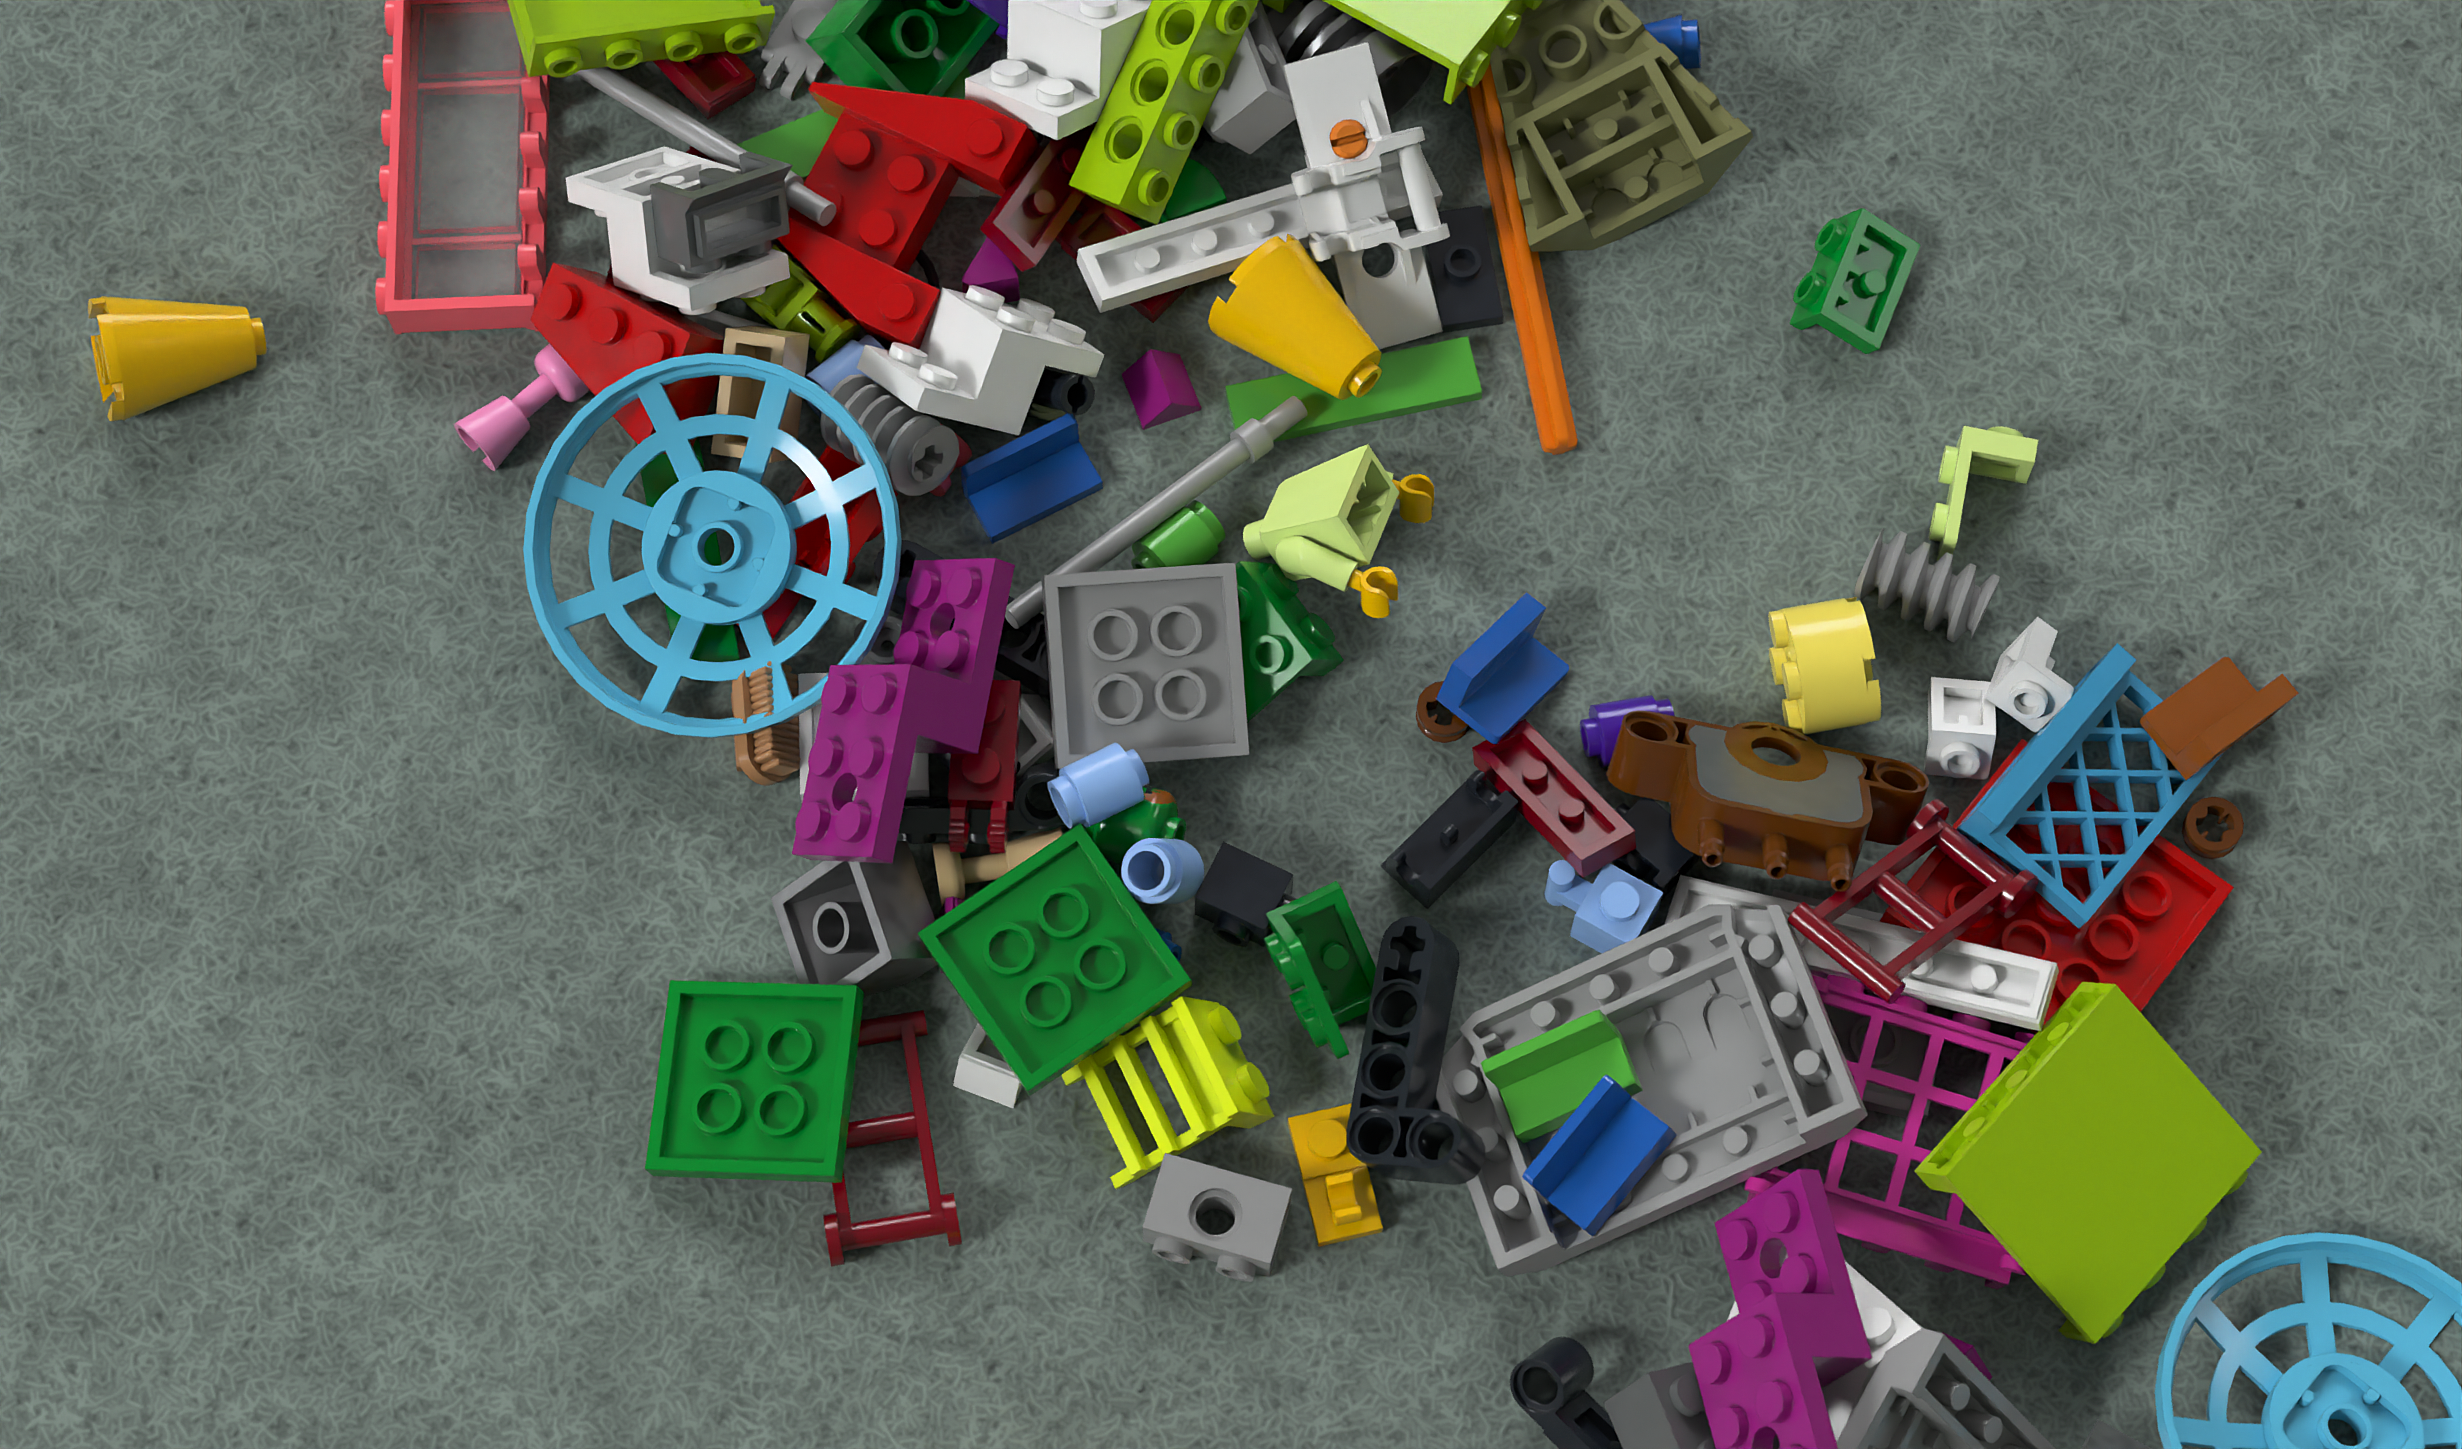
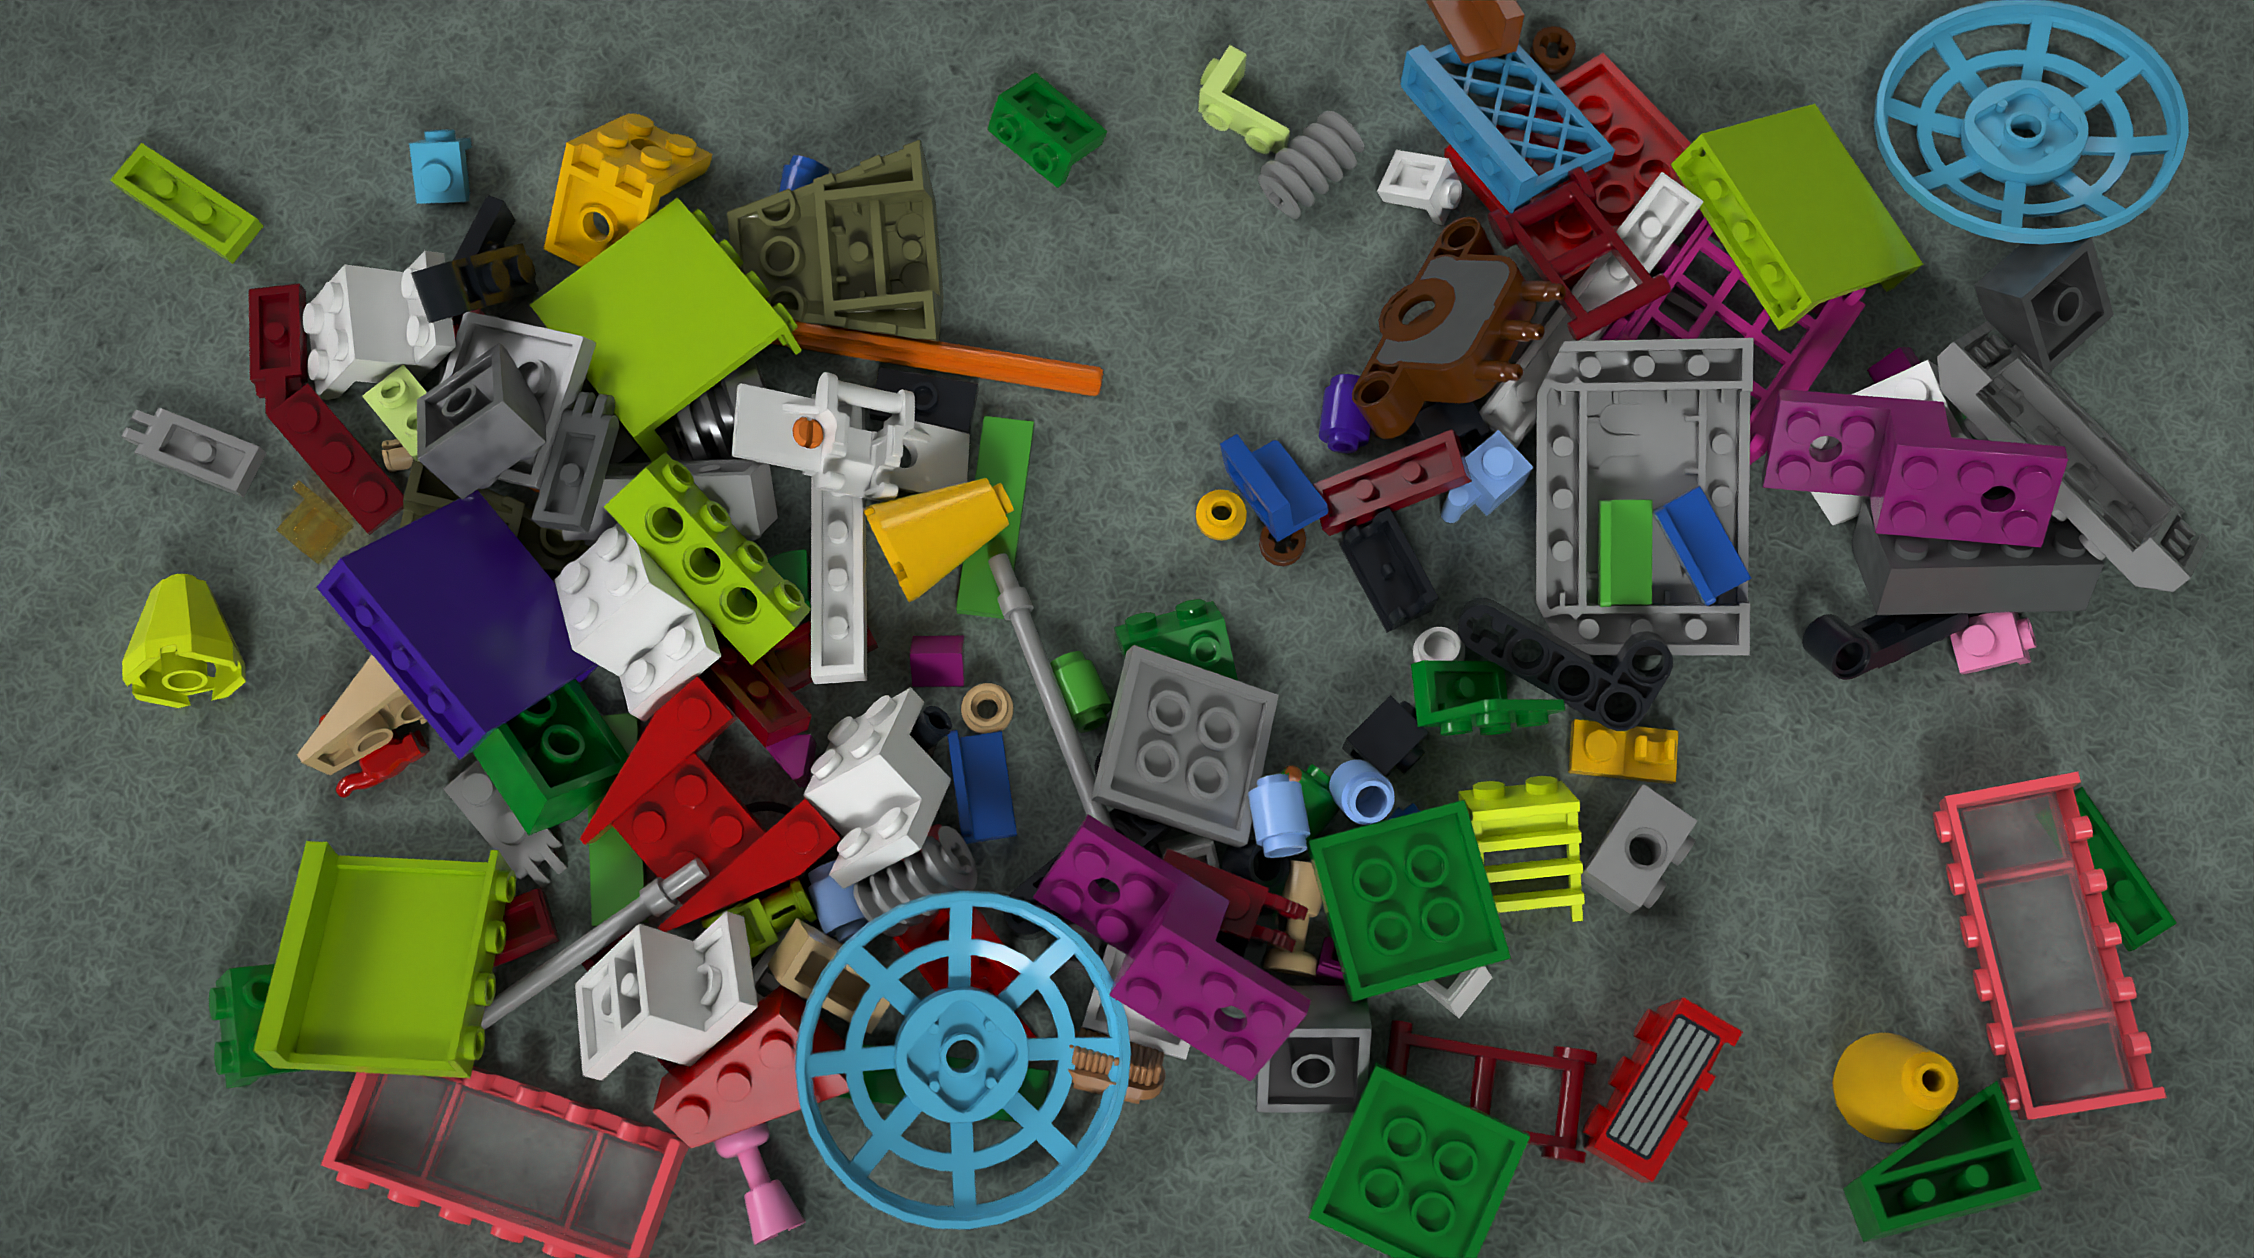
camera: 70 degrees left, 5 degrees up
(723, 216) = (687, 943): dark grey window -> none
(940, 1313) = (1657, 1087): none -> wedge
(1124, 442) = (983, 693): none -> tan plate
(1332, 521) = (1113, 566): yellowish green torso -> none
(1373, 918) = (1438, 644): none -> white plate
(1439, 647) = (1216, 528): none -> yellow plate
(1825, 665) = (1354, 253): light yellow brick -> none
(2024, 678) = (1405, 124): white bracket -> none

